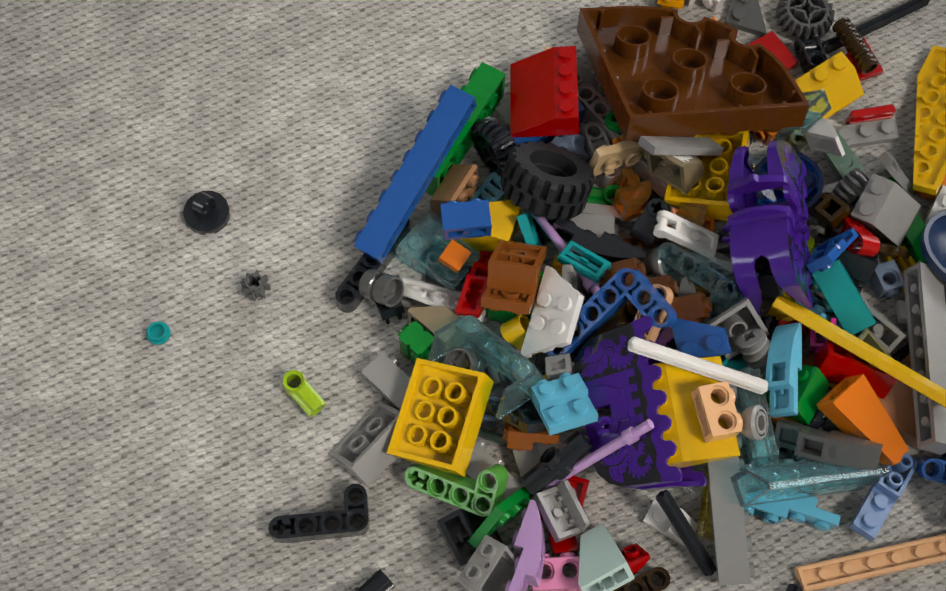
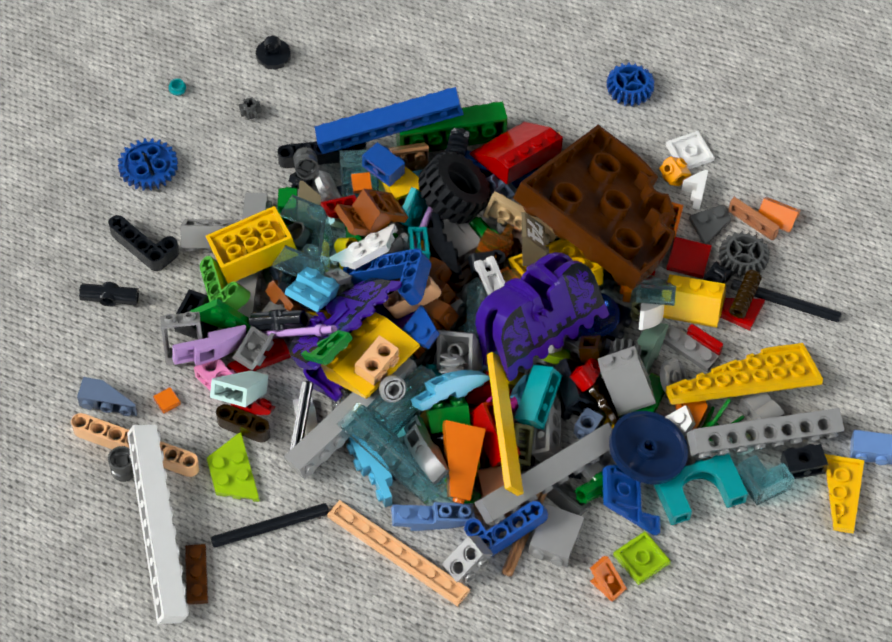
camera: 50 degrees right, 10 degrees down
(220, 458) = (136, 170): none -> blue gear
(304, 394) = (207, 178): lime piece -> none
(673, 448) = (328, 348): none -> green wing
(680, 145) = (541, 229): light grey tile -> none
(697, 365) = (396, 331): white axle -> none
(827, 252) = (554, 360): blue wing -> none

